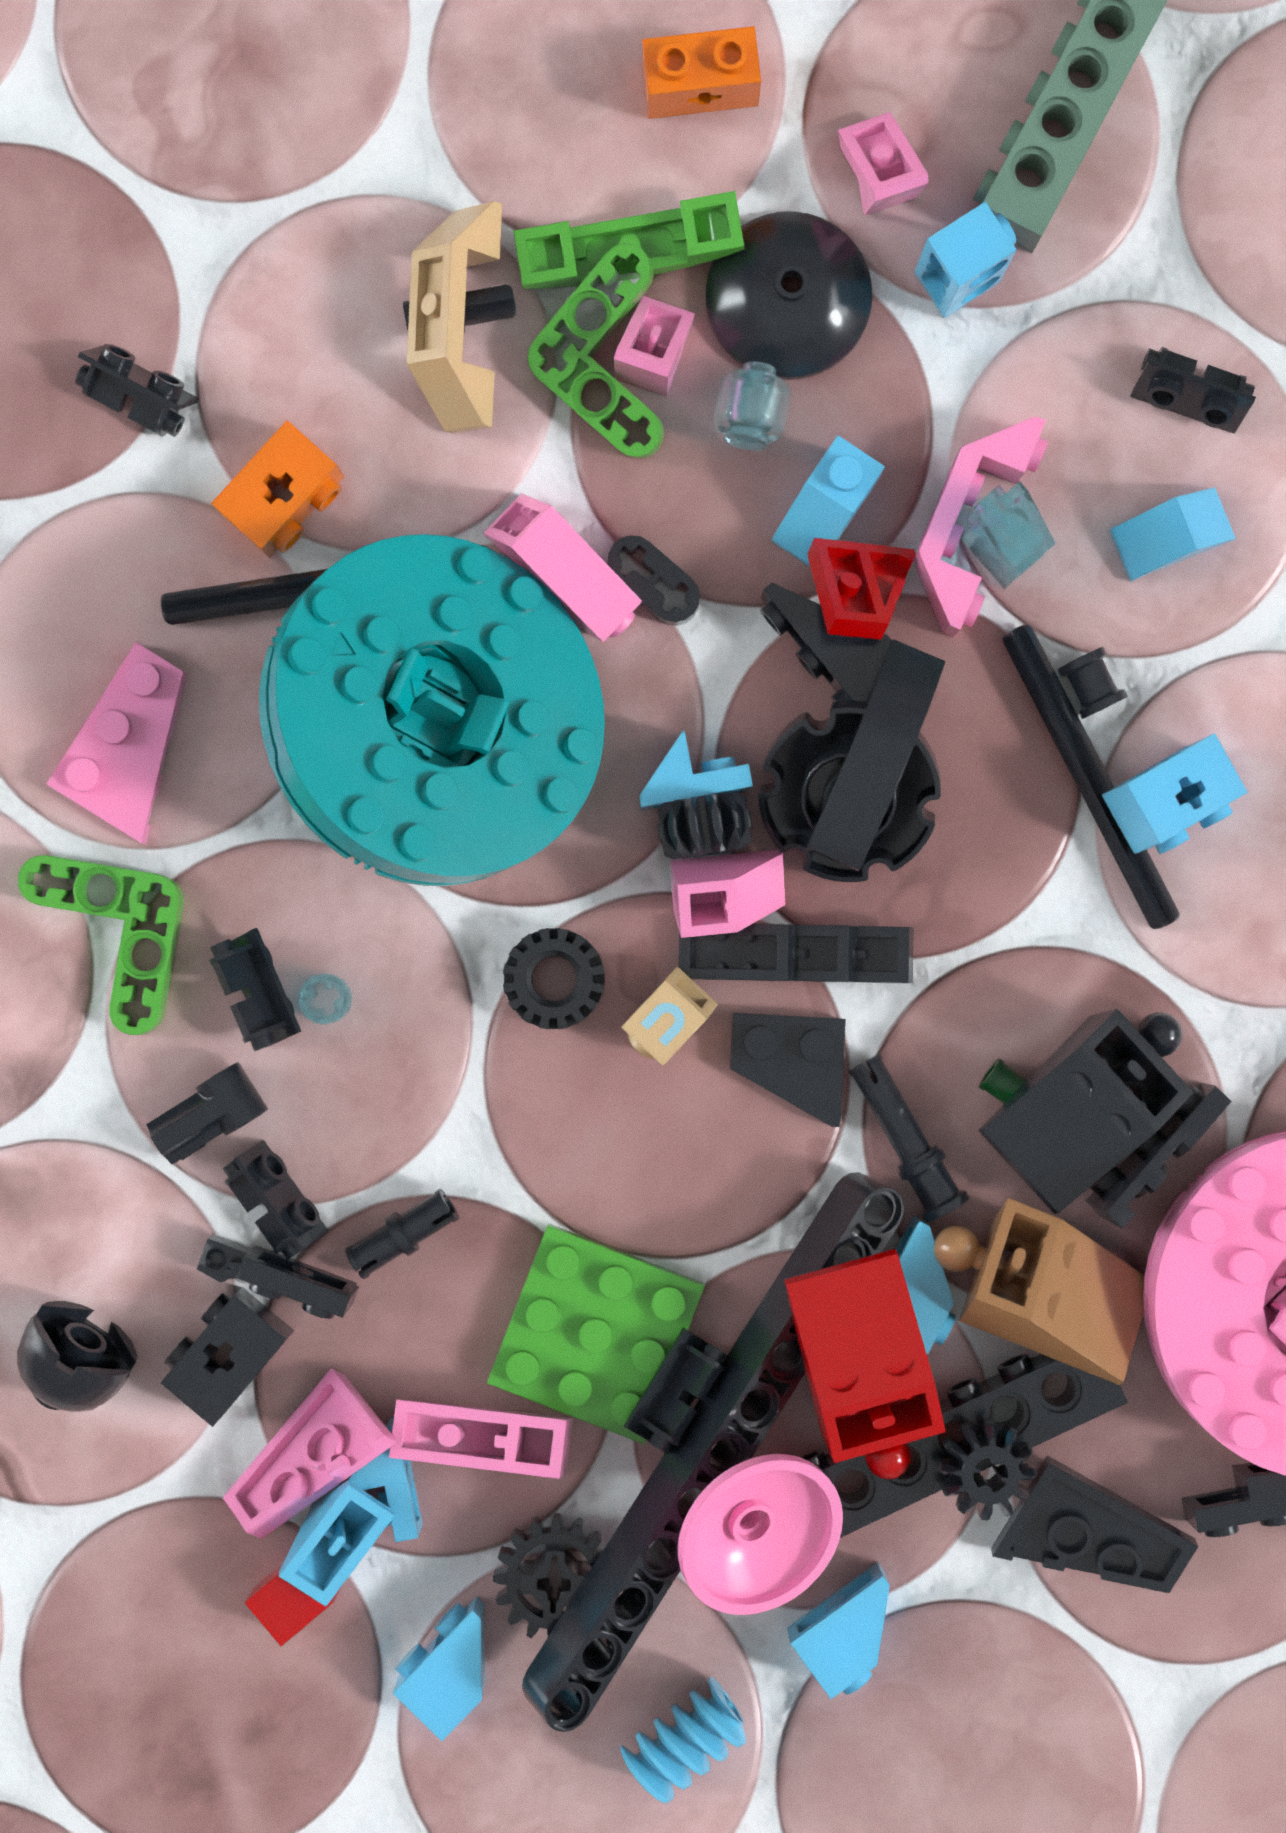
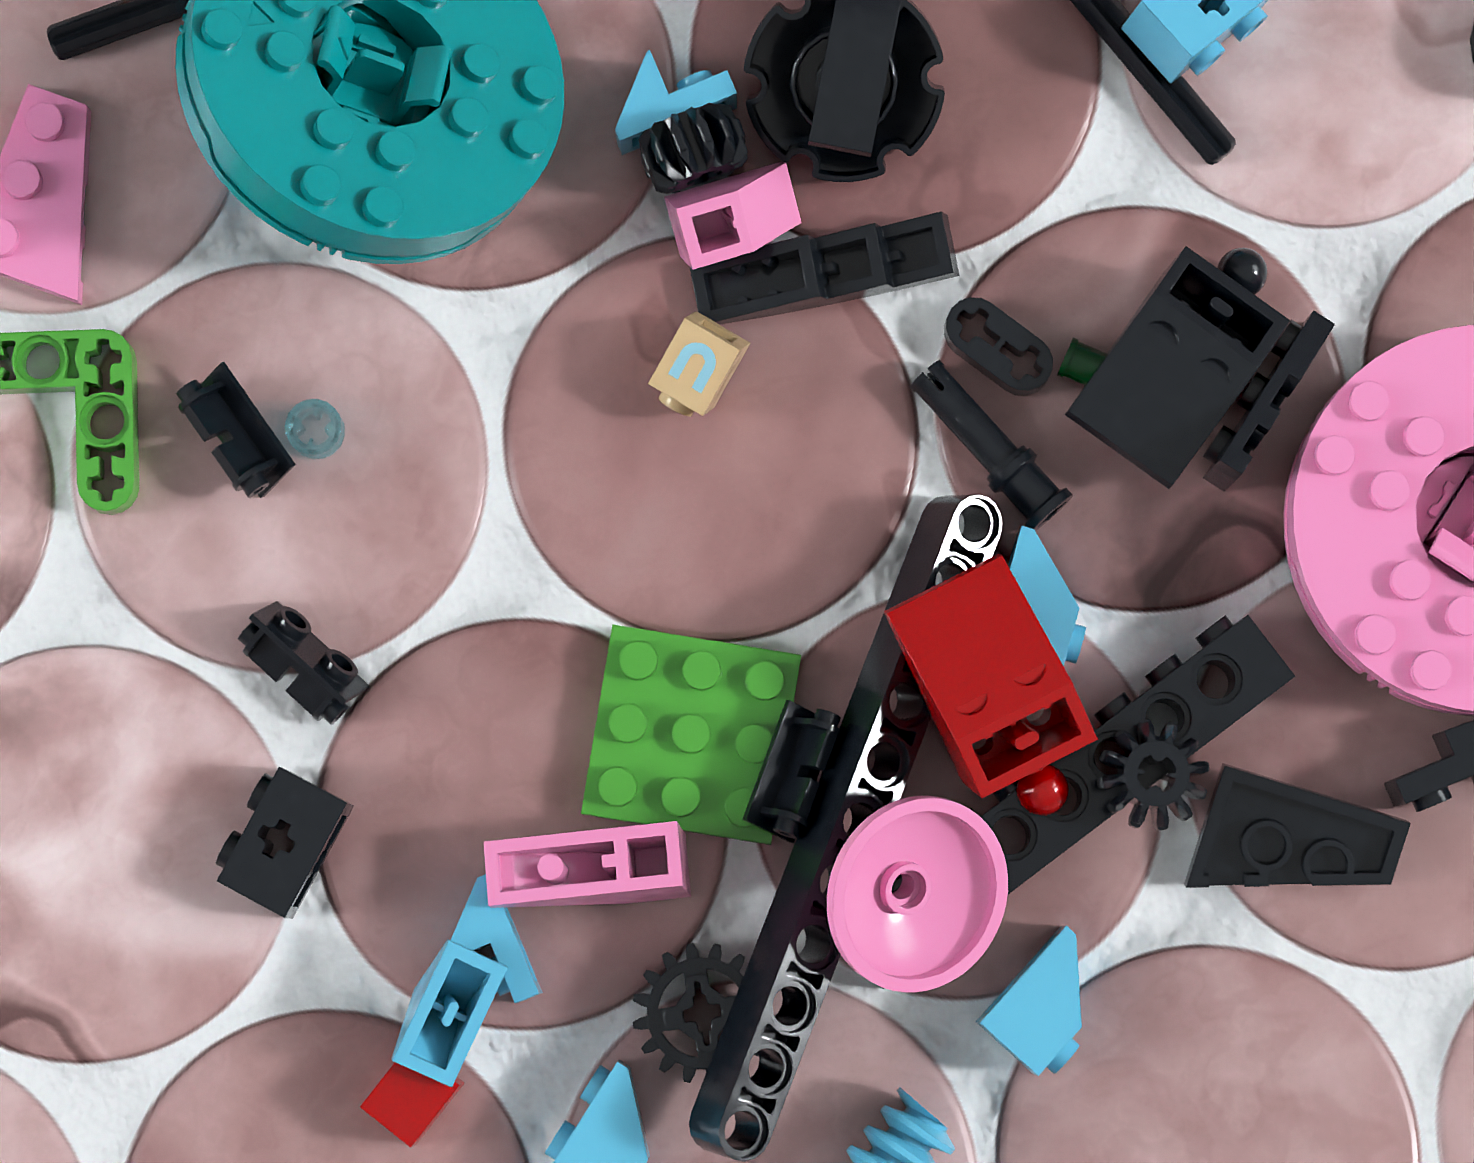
camera: 10 degrees left, 5 degrees down
(71, 1360) = (112, 882): black cylinder -> none
(217, 1108) = (222, 568): black piece -> none
(274, 1276) = (318, 743): black hinge -> none
(310, 1455) = (398, 932): bright pink wing -> none
(402, 1234) = (452, 668): black pin -> none
(519, 985) = (554, 315): black tyre -> none
(793, 1059) = (846, 386): black wing -> none
(942, 1041) = (1007, 334): none -> black beam
(1054, 1291) = (1197, 574): medium nougat slope -> none

